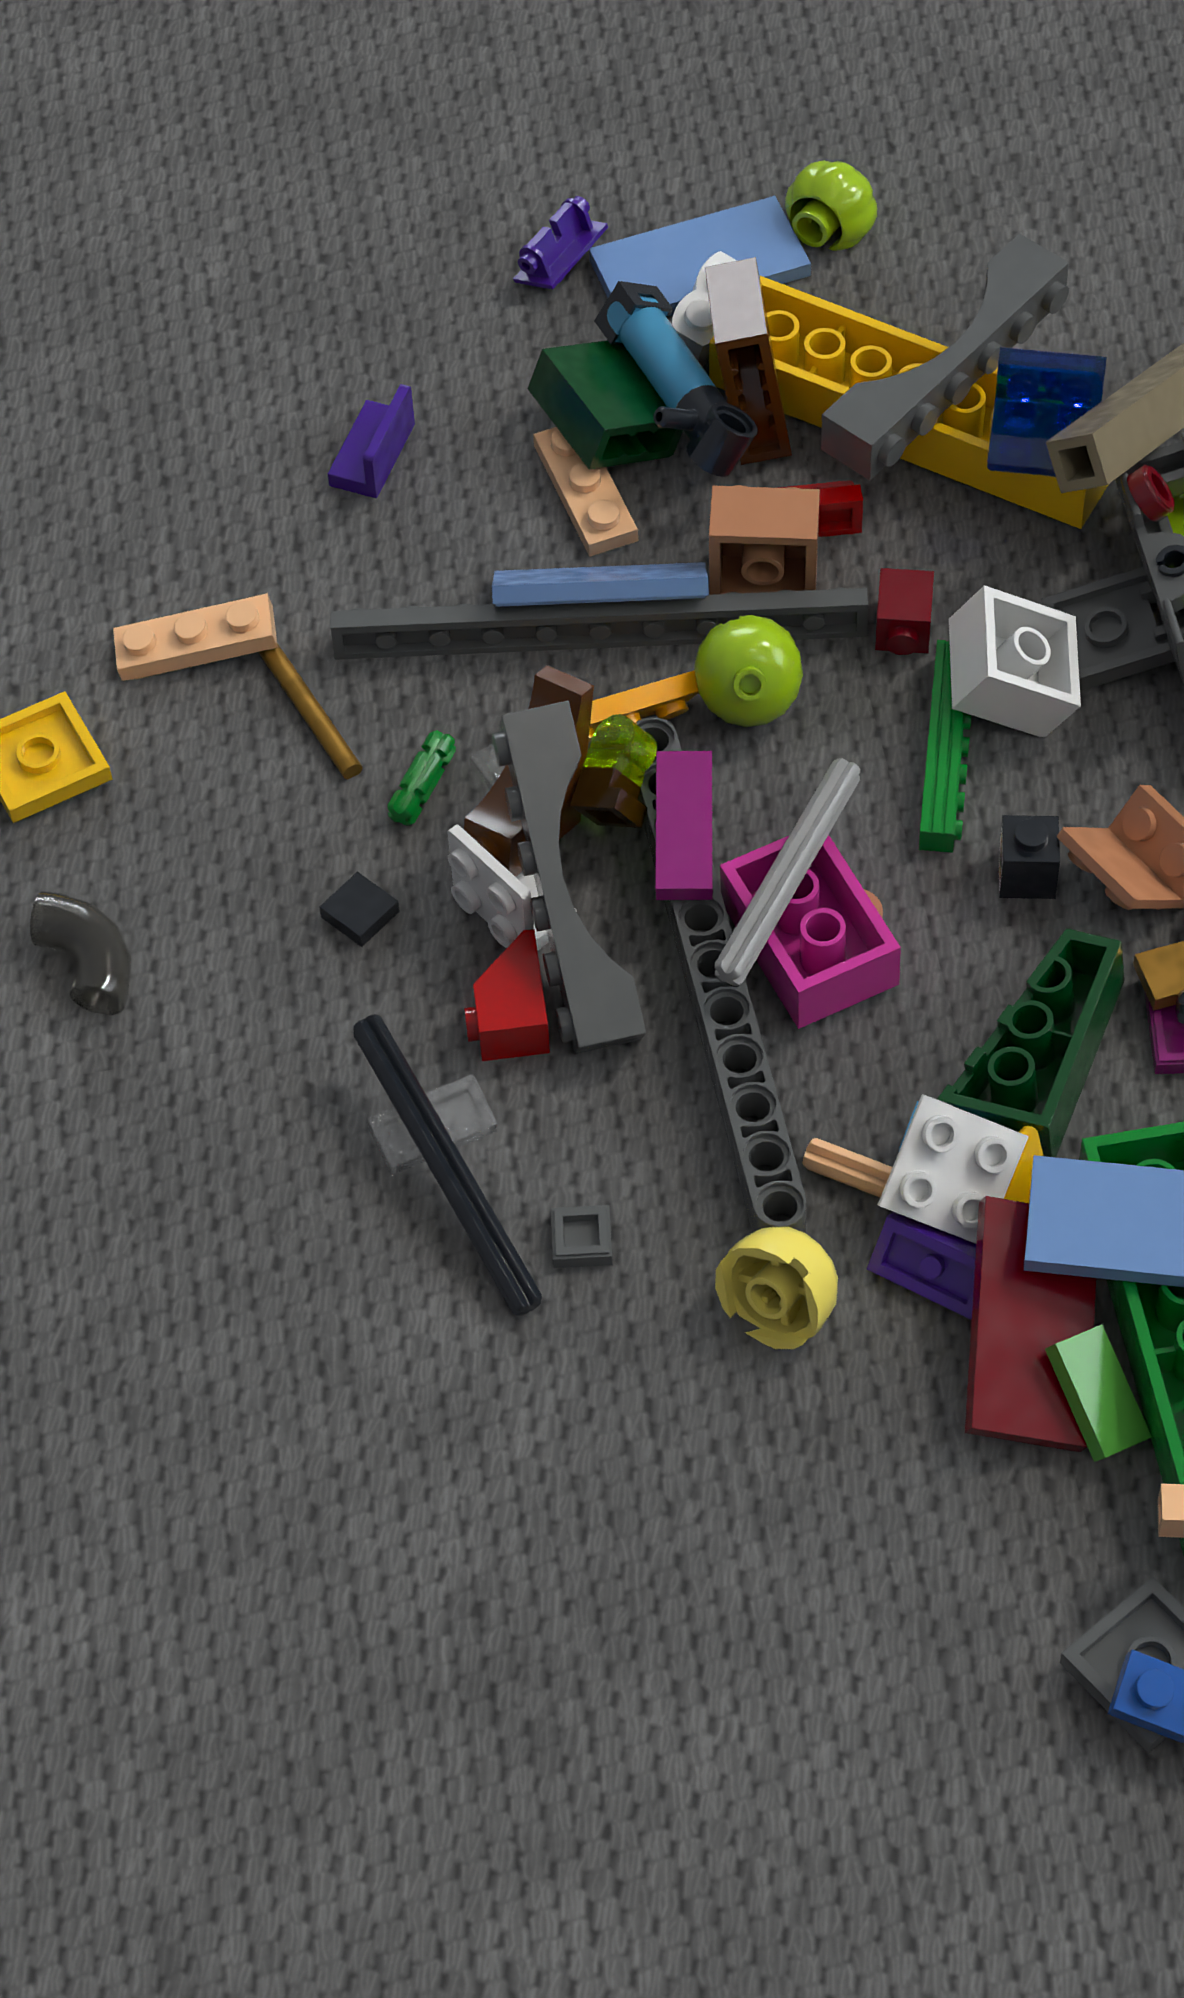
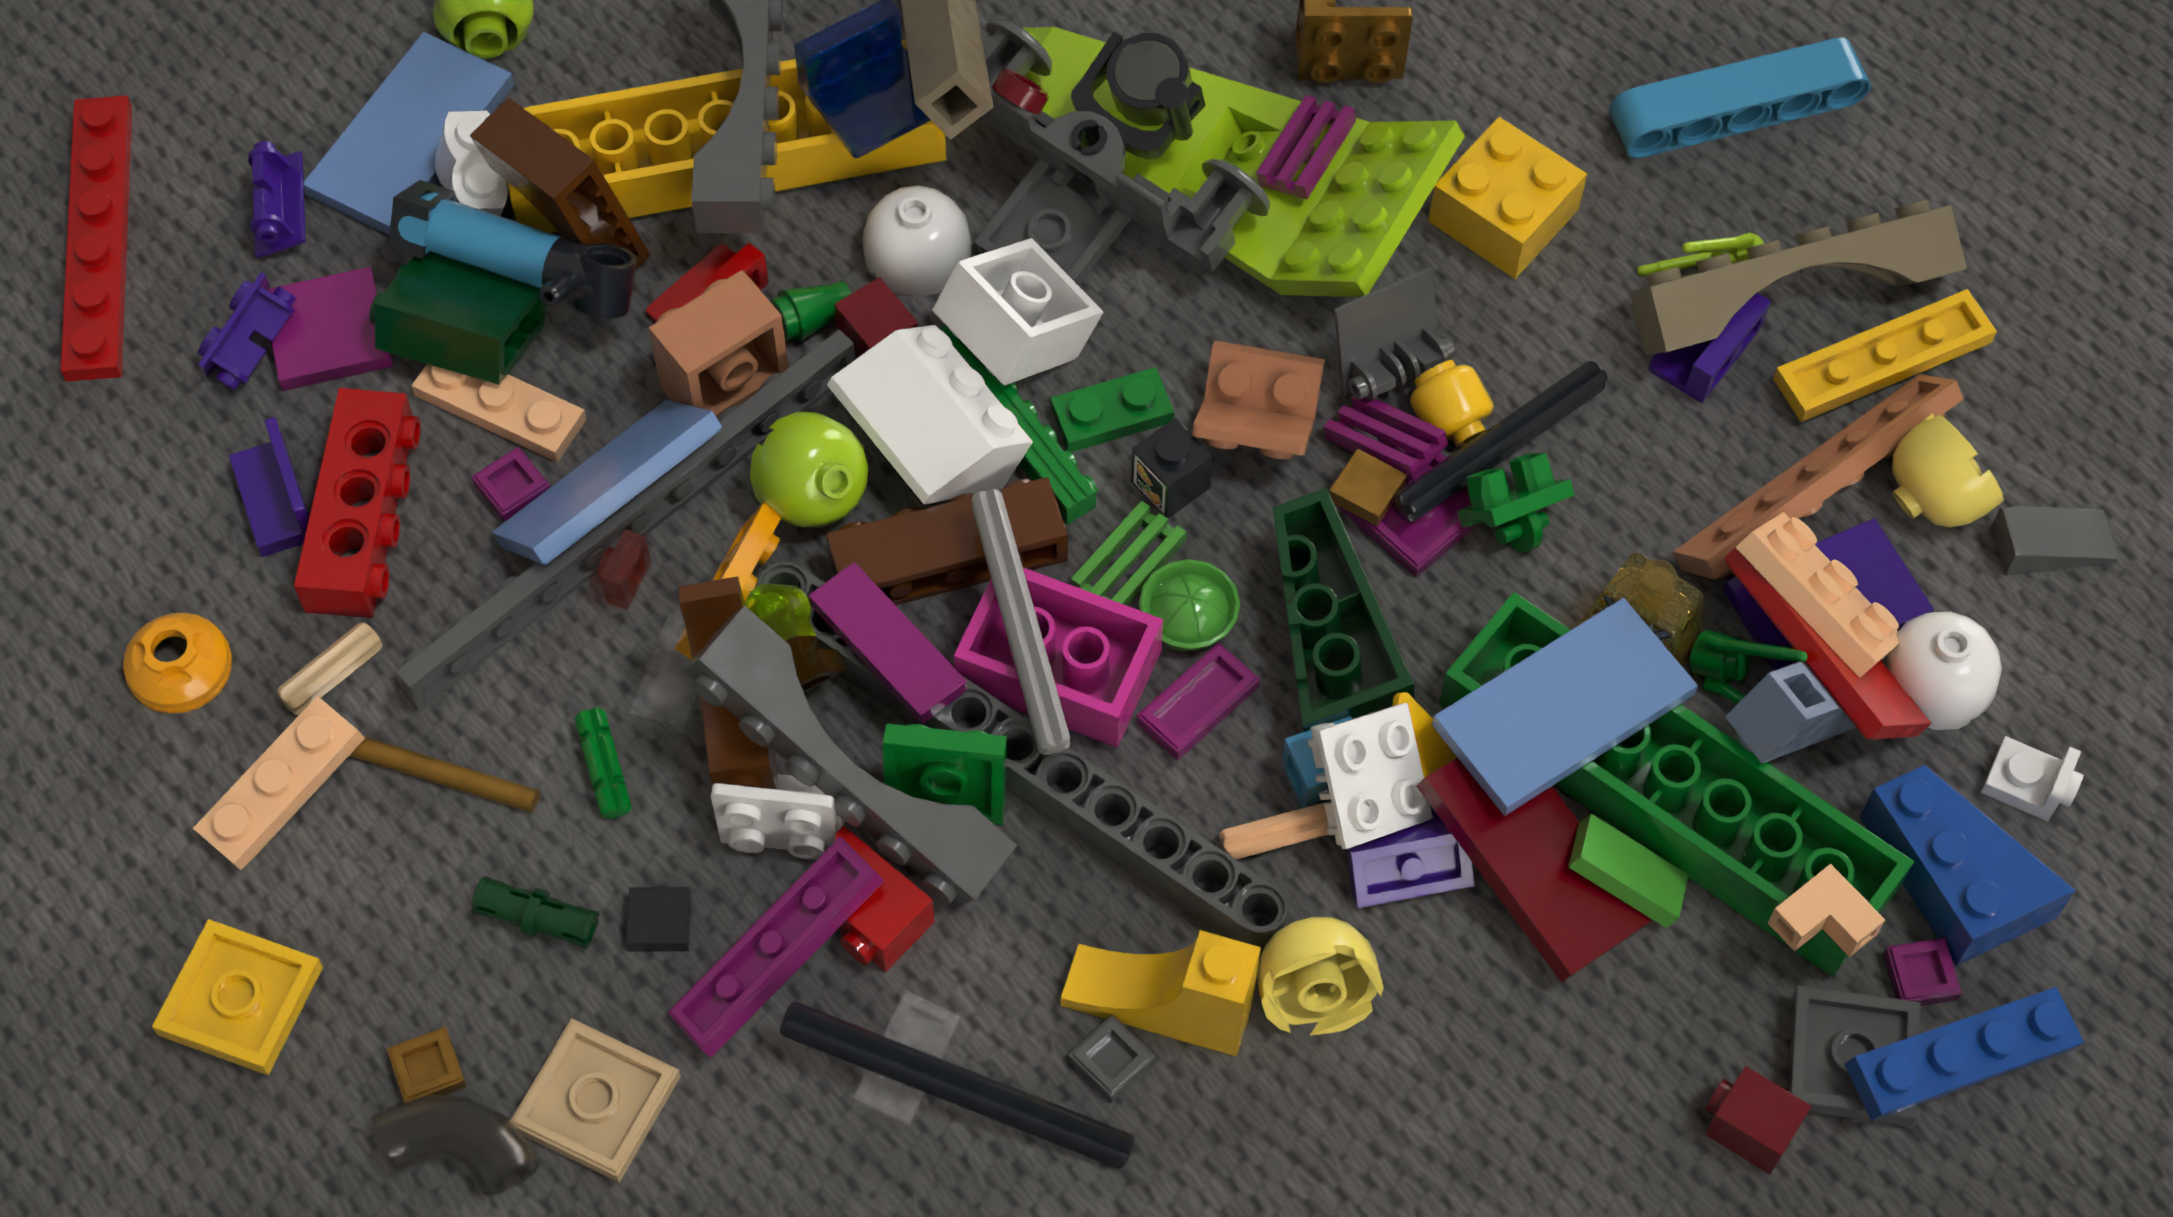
camera: 45 degrees left, 5 degrees up
(118, 891) = (427, 1065): none -> pearl gold tile
(203, 996) = (595, 1100): none -> tan tile
(208, 529) = (185, 681): none -> light orange piece
(280, 842) = (535, 912): none -> dark green pin
(303, 586) = (329, 668): none -> tan axle
(412, 977) = (775, 947): none -> magenta tile
(419, 199) = (97, 239): none -> red plate
(419, 486) = (359, 425): none -> red brick
(429, 325) = (253, 312): none -> dark purple hinge
(504, 354) = (329, 331): none -> magenta tile
(540, 546) = (510, 483): none -> magenta tile
(562, 650) = (624, 568): none -> clear red plate
(642, 943) = (947, 767): none -> green plate
(669, 1221) = (1183, 994): none -> yellow arch
(774, 784) = (940, 546): none -> reddish brown brick
(859, 563) = (808, 308): none -> green cone
(876, 694) = (931, 415): none -> white slope
(892, 1039) = (1198, 701): none -> magenta tile
(936, 895) = (1100, 558): none -> bright green tile
(948, 966) = (1194, 601): none -> bright green hat
(1000, 556) = (915, 240): none -> white cylinder
(1021, 1645) = (1755, 1118): none -> dark red brick
(1031, 788) = (1112, 409): none -> green plate

